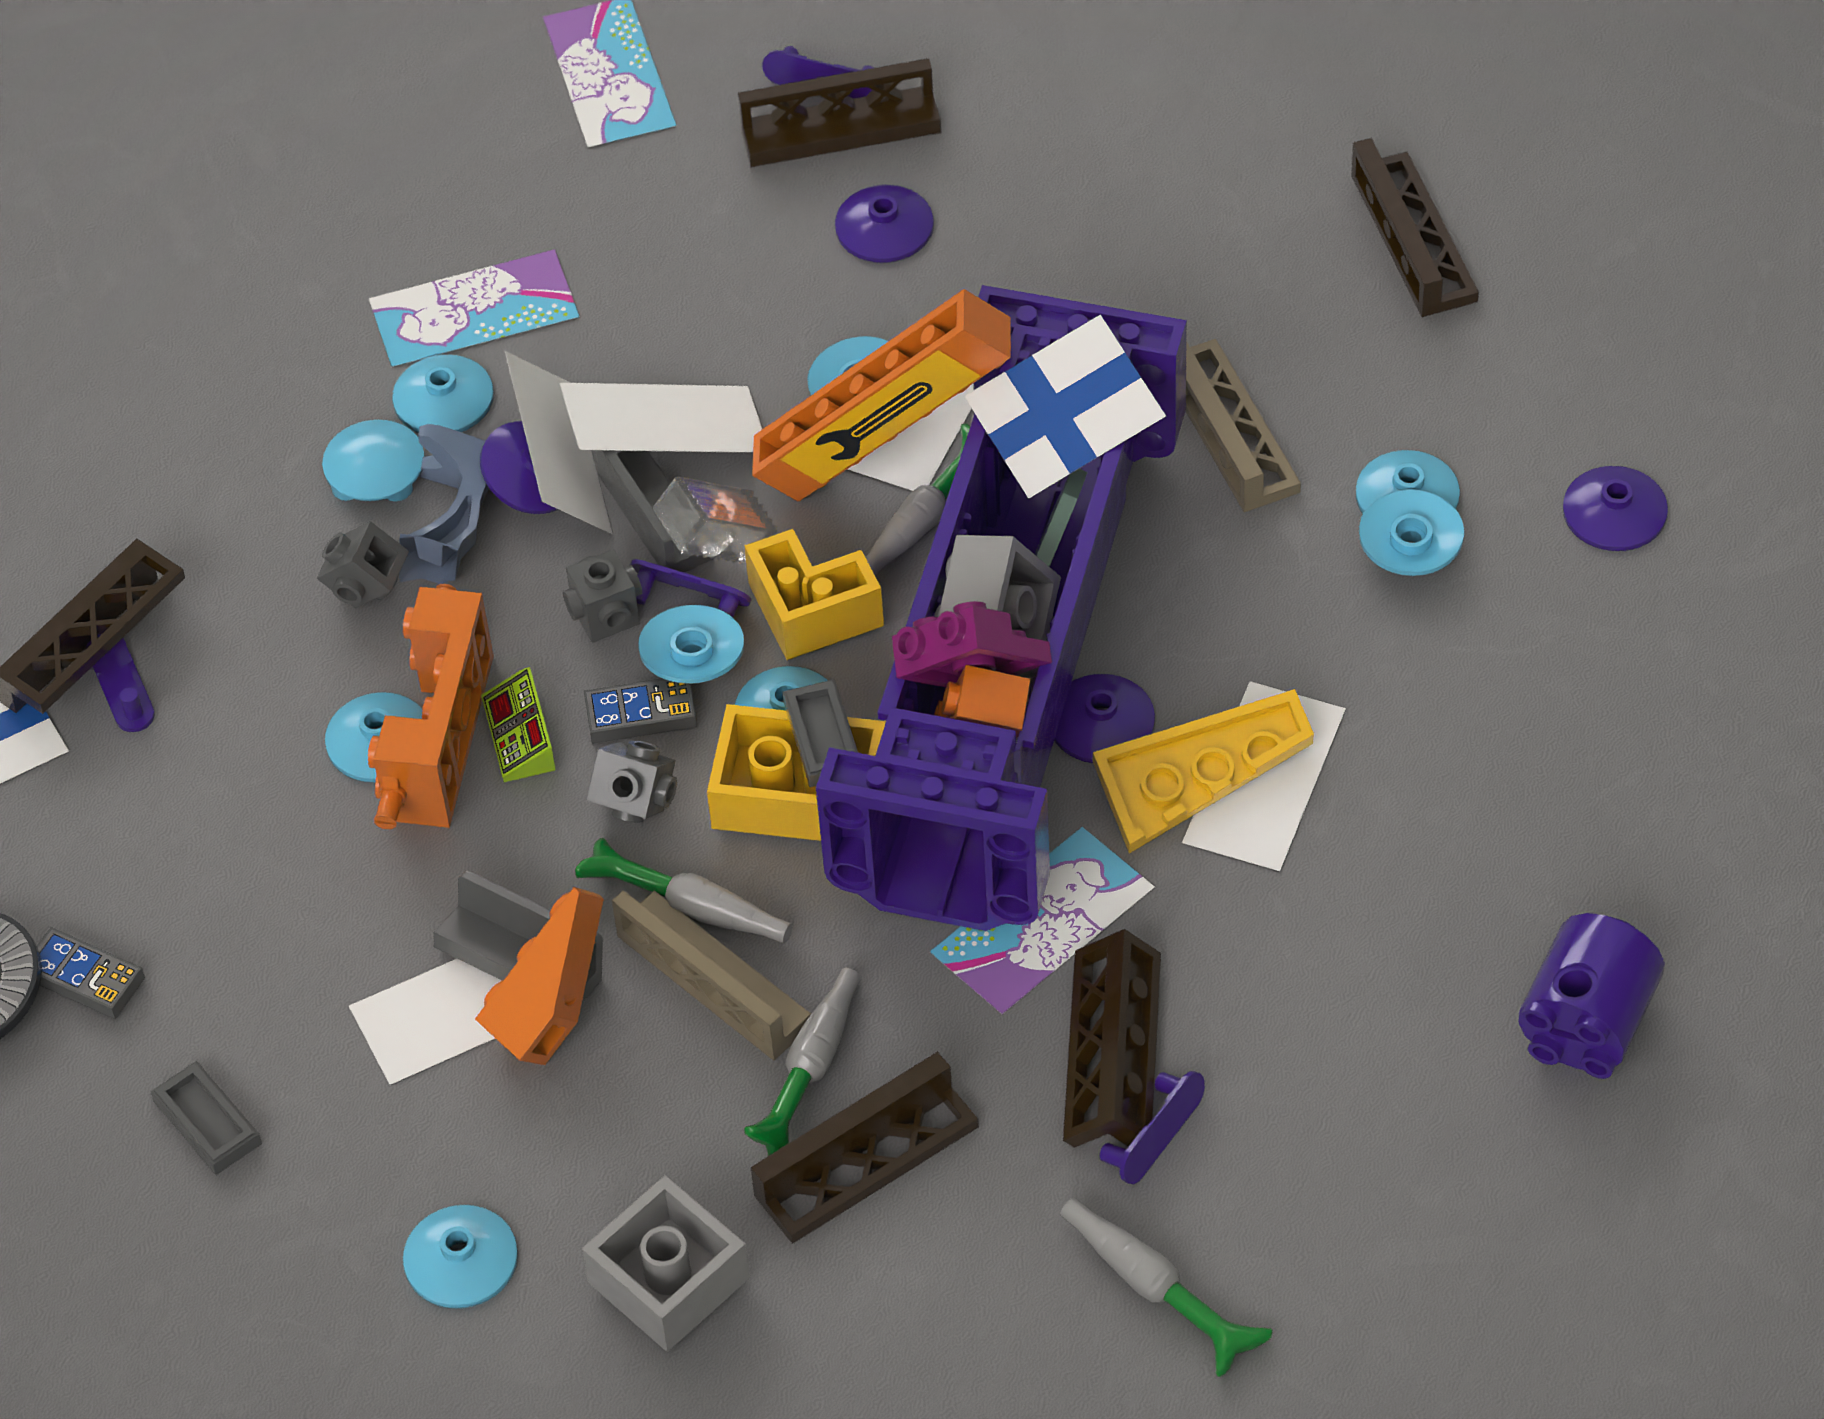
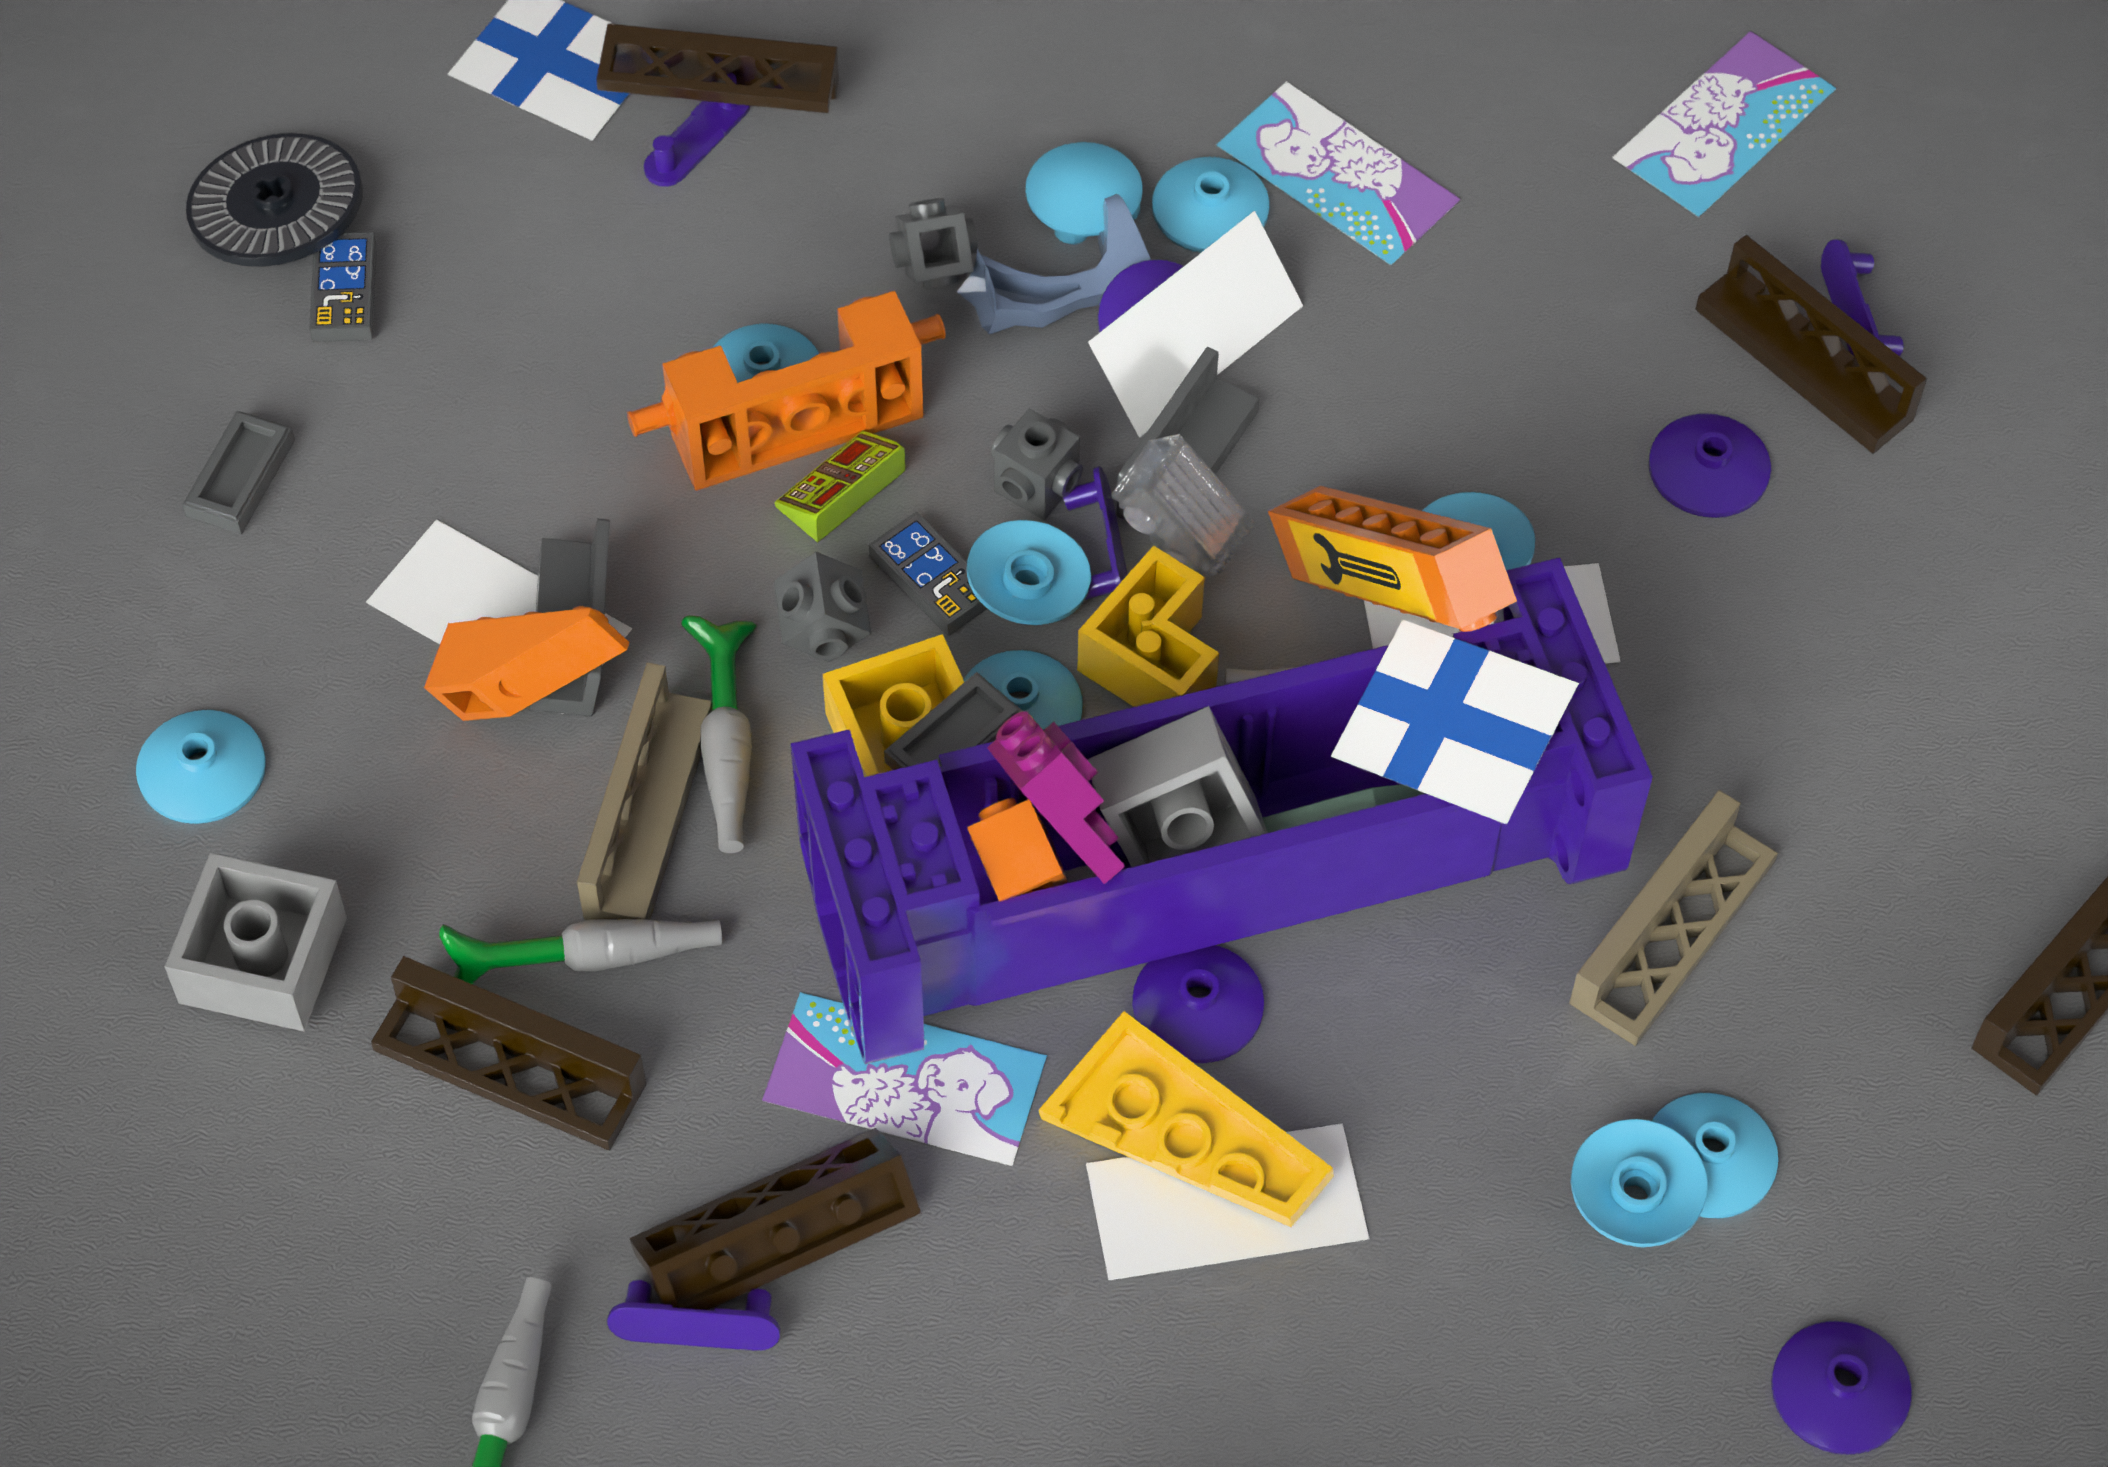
camera: 55 degrees right, 5 degrees up
(661, 417) = (1289, 394): white sticker -> none

